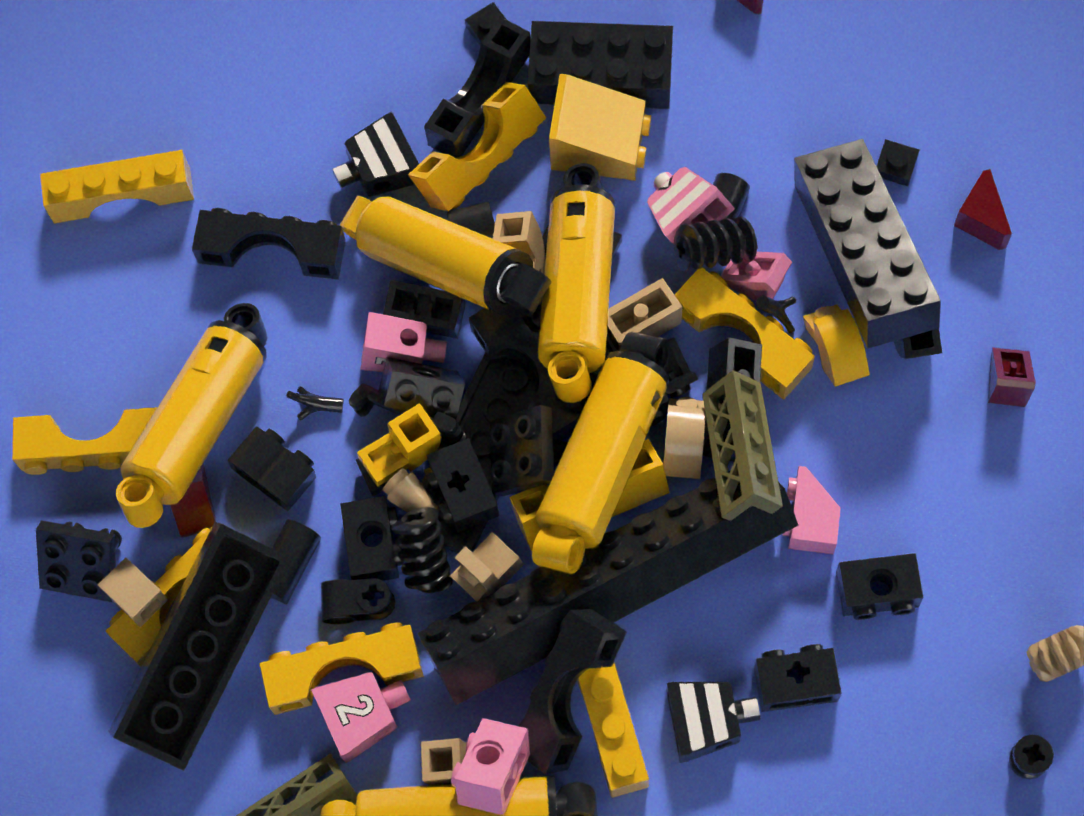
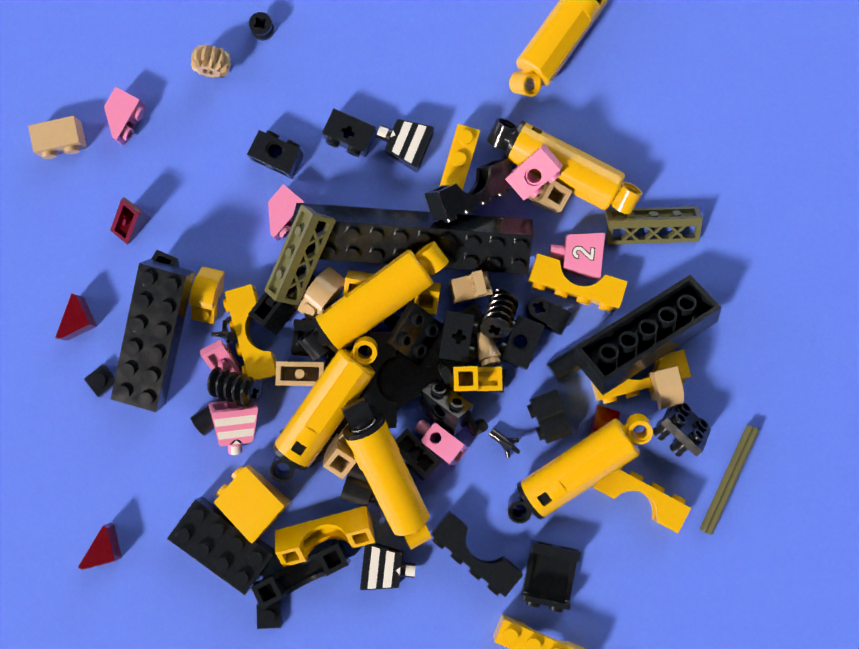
camera: 150 degrees left, 15 degrees up
(156, 275) = (549, 575): none -> black panel

